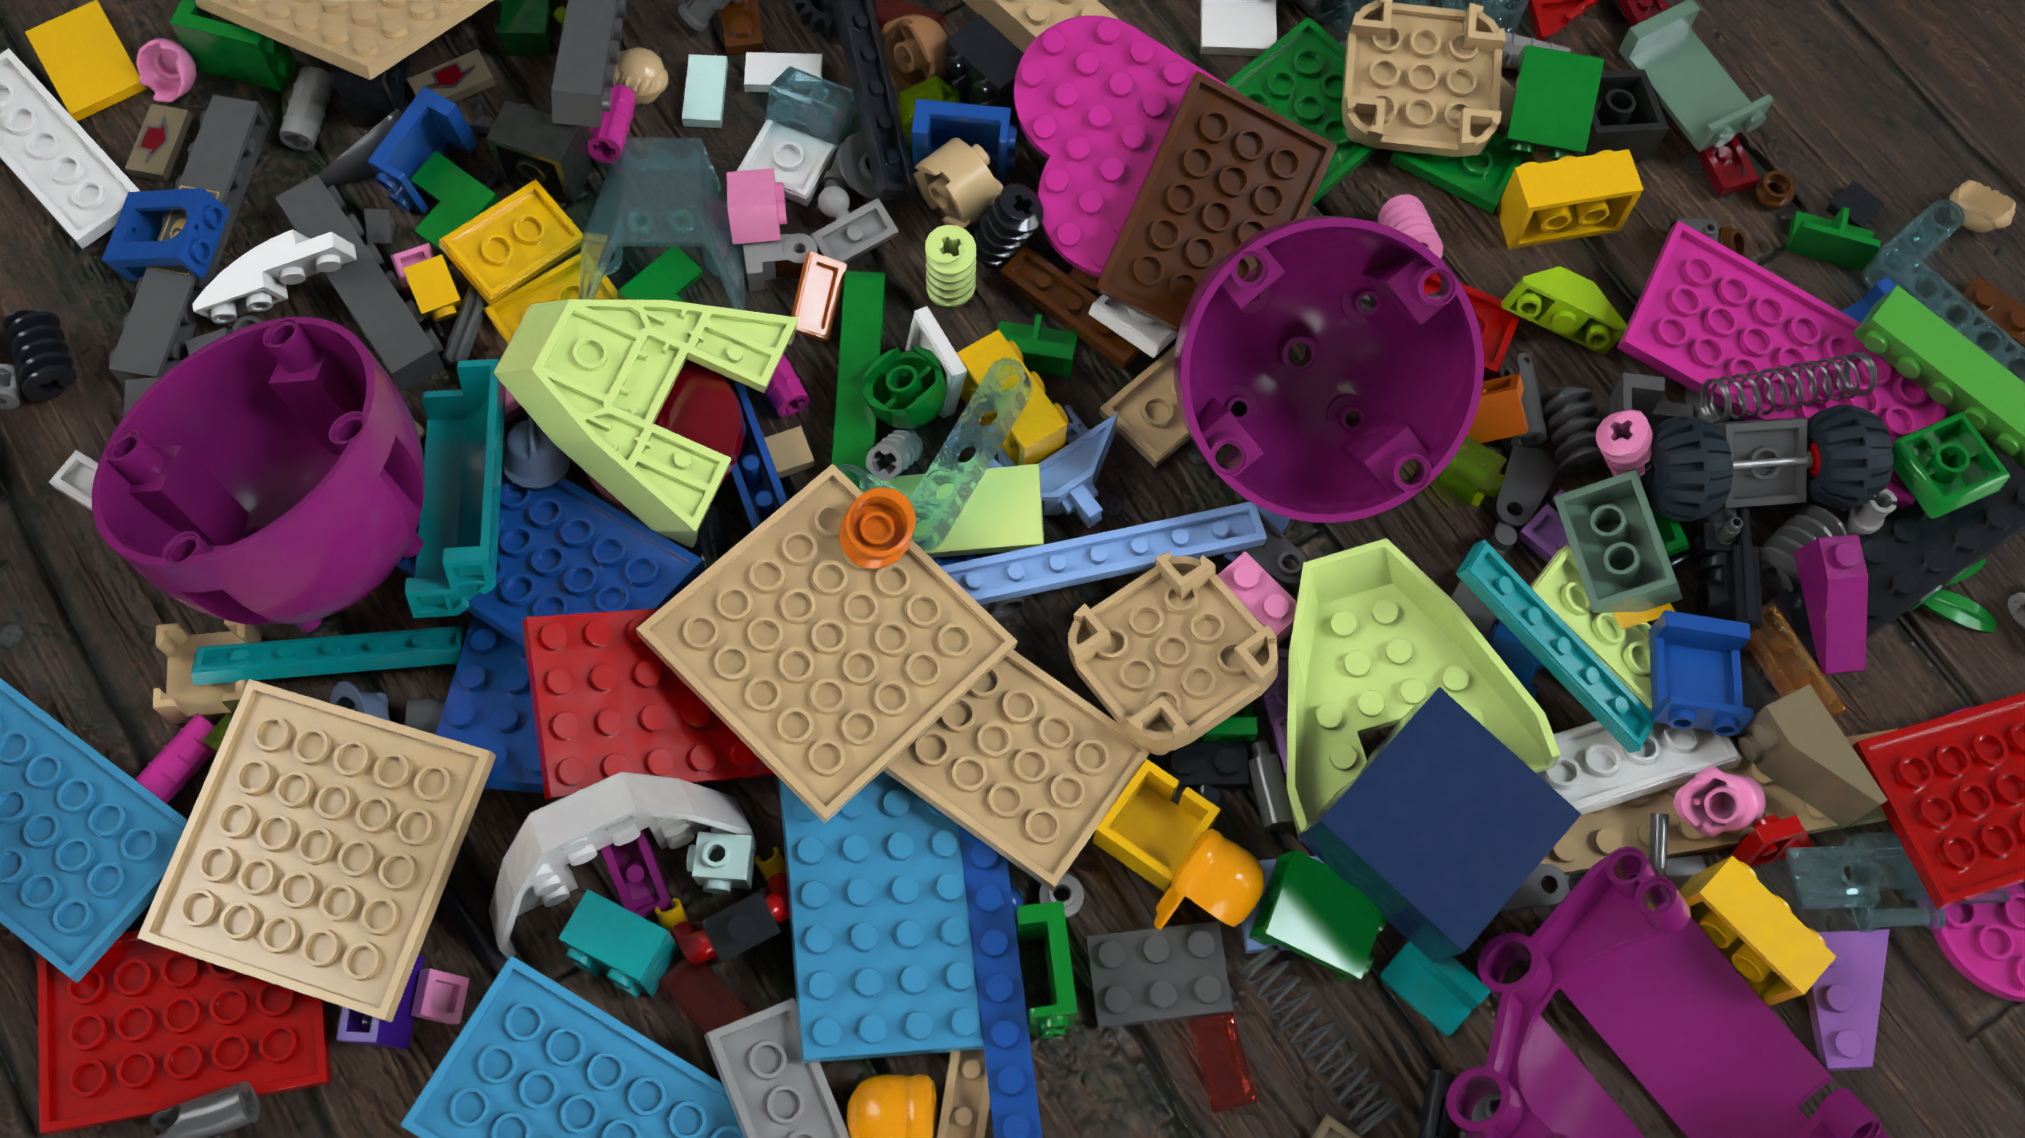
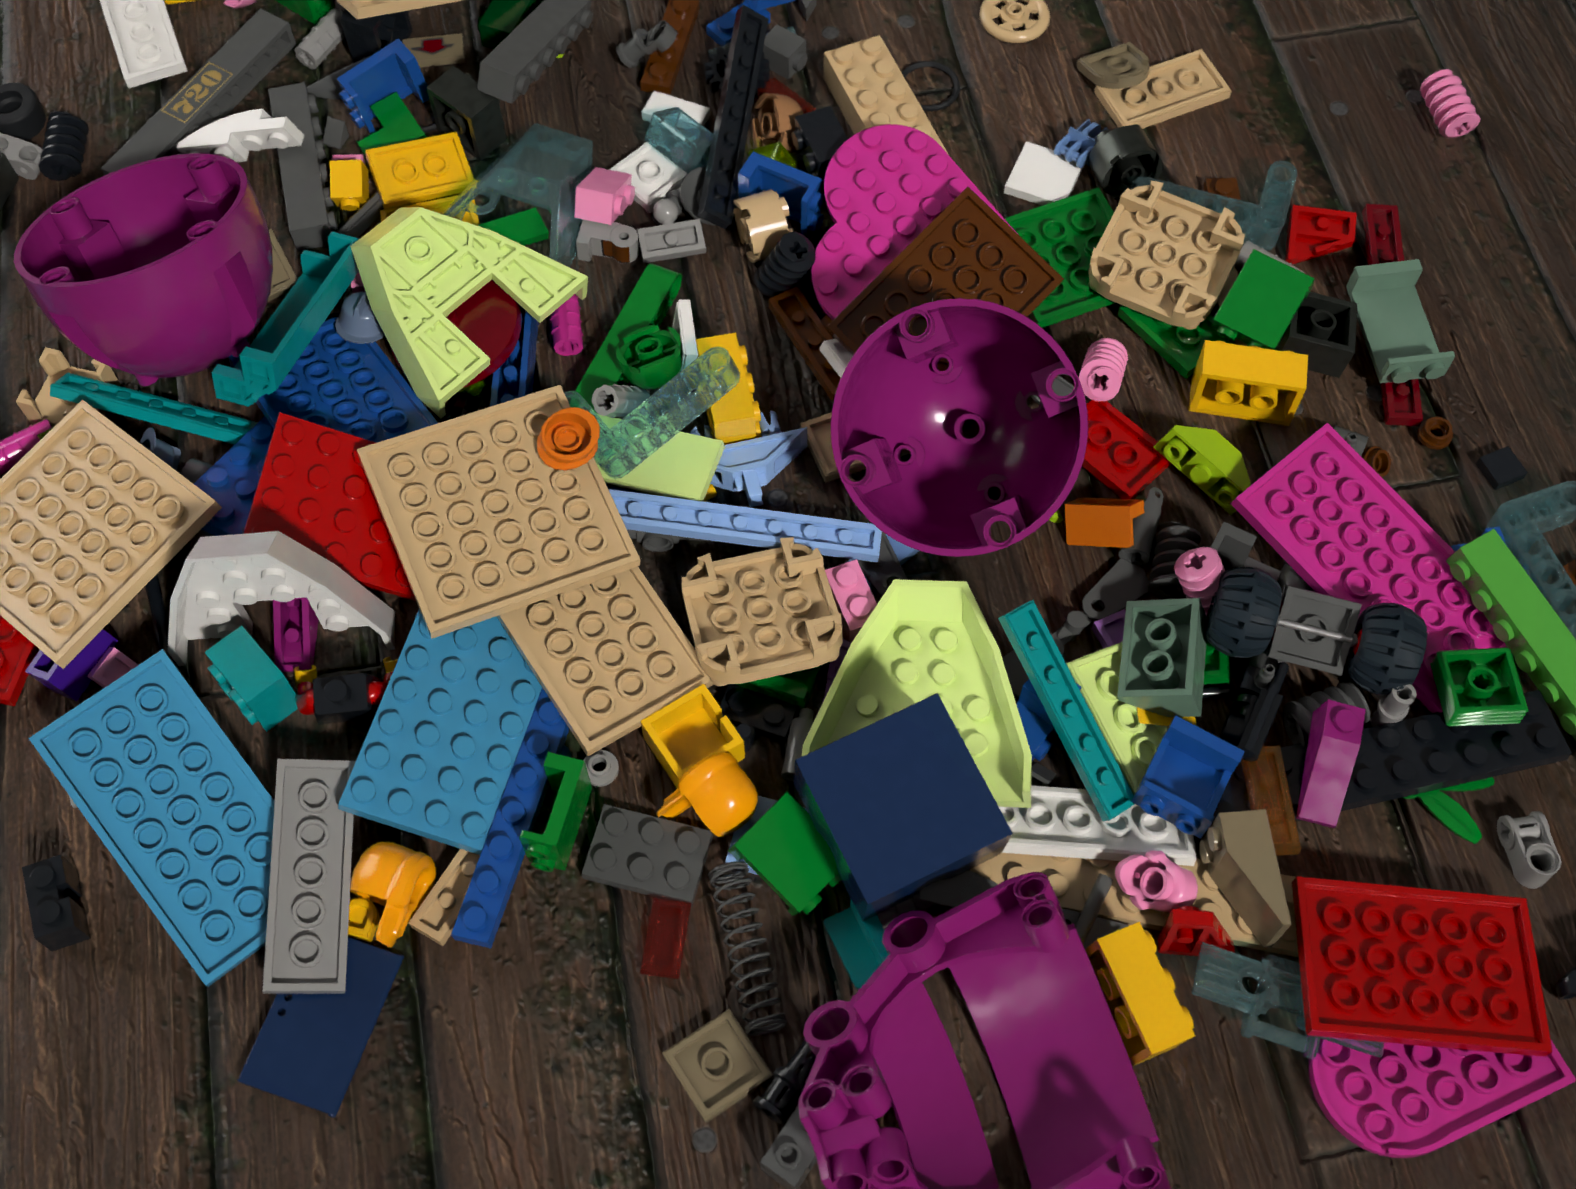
camera: 25 degrees right, 5 degrees down
(136, 233) = (193, 104): blue panel -> none
(158, 143) = (213, 33): dark tan tile -> none
(607, 142) = (530, 109): dark pink axle -> none
(642, 73) = (567, 84): tan hair -> none
(703, 995) = (299, 737): clear red tile -> none
(705, 91) = (612, 109): light aqua tile -> none
(732, 871) = (358, 648): light aqua brick -> none
(790, 451) = (550, 375): tan tile -> none
(818, 295) = (621, 275): tile -> none
(950, 266) = (728, 281): yellowish green piece -> none
(1043, 349) = (774, 366): green panel -> none
(1473, 472) = (1075, 564): clear neon green brick -> none
(1832, 240) = (1467, 487): green panel -> none
(1845, 375) = (1296, 566): dark grey piece -> none
(1848, 999) = (1207, 1081): medium lavender wing -> none

